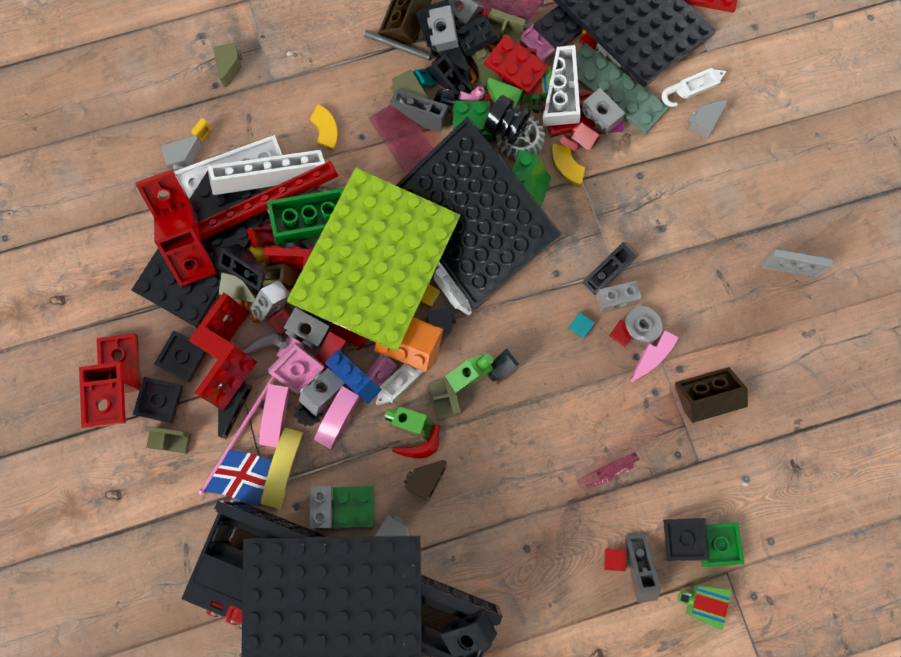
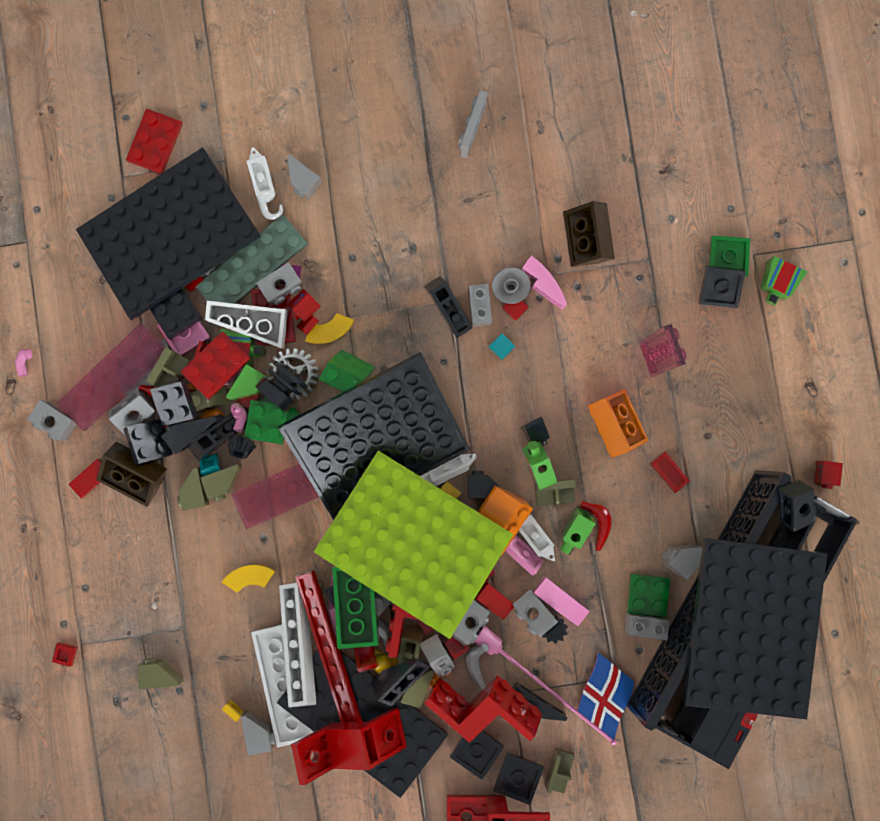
camera: 80 degrees left, 10 degrees up
(274, 415) = (550, 663): bright pink slope -> none
(281, 468) = (601, 660): light yellow slope -> none
(295, 368) = (508, 636): bright pink plate -> none
(353, 376) = (526, 580): blue brick -> none
(396, 64) = (192, 492): none -> olive slope
(398, 45) = (164, 487): dark grey bar -> none
(421, 110) = (249, 473): dark grey slope -> none
(425, 479) = (638, 524): dark brown slope -> none
(440, 18) = (174, 431): light grey brick -> none
(483, 513) = (670, 472): none -> red tile
(525, 450) = (618, 423): none -> orange slope
(615, 560) = (729, 355): red tile -> none
(642, 568) = (741, 332): dark grey slope -> none

